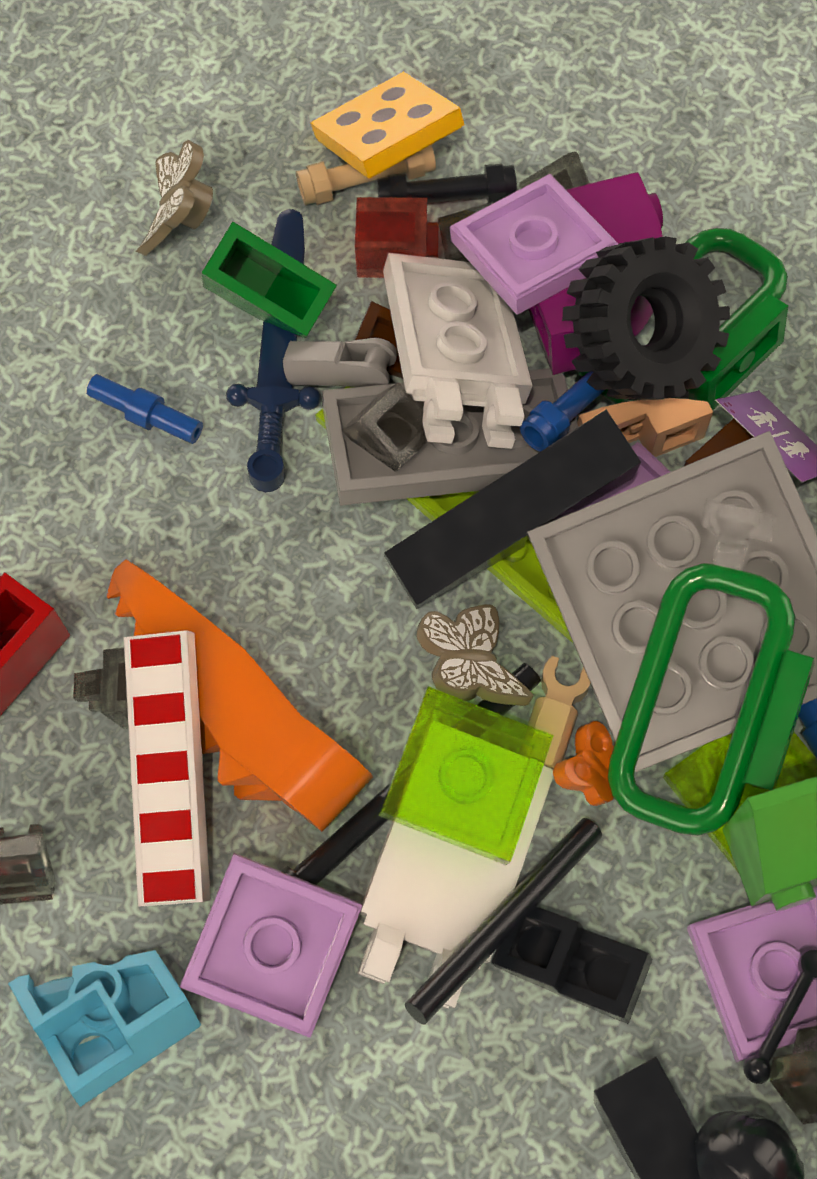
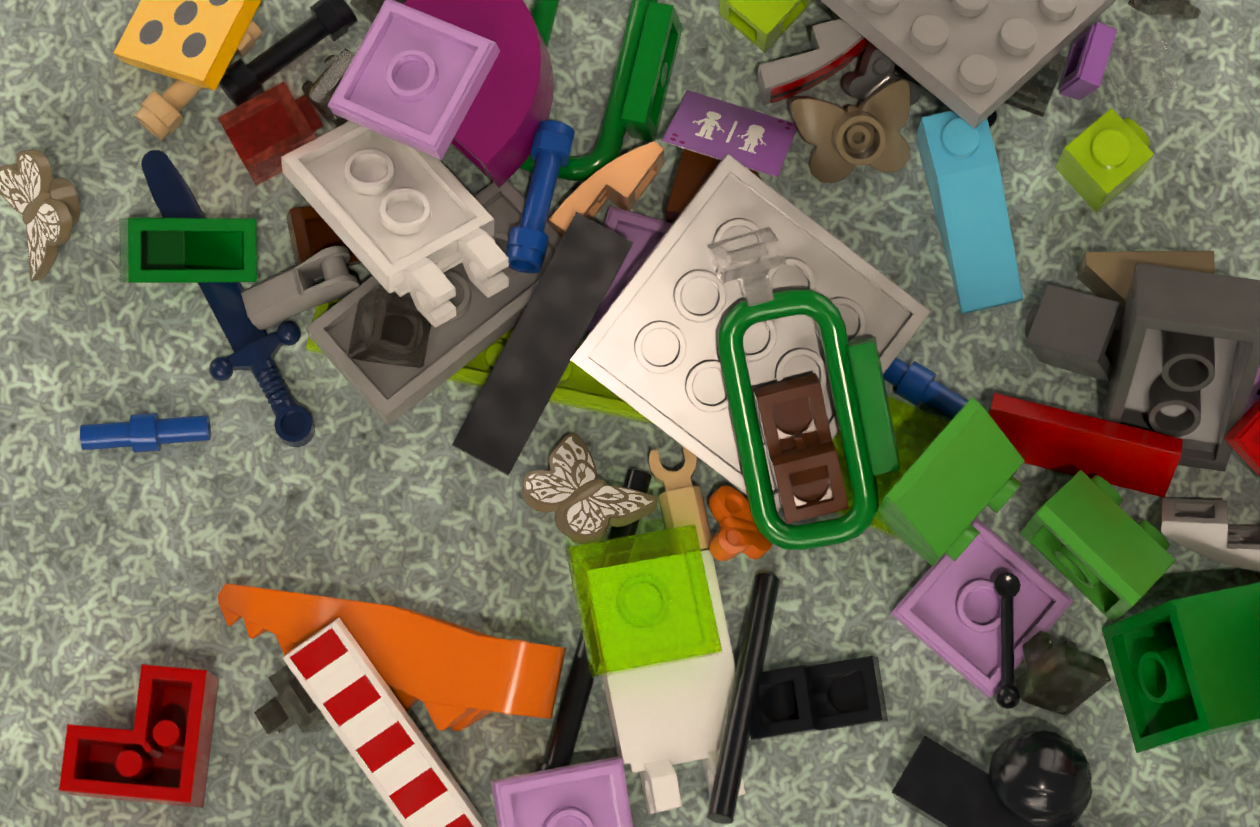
camera: 30 degrees left, 10 degrees up
(683, 312) = (599, 99): black tyre -> none
(689, 726) = (801, 448): none -> reddish brown slope

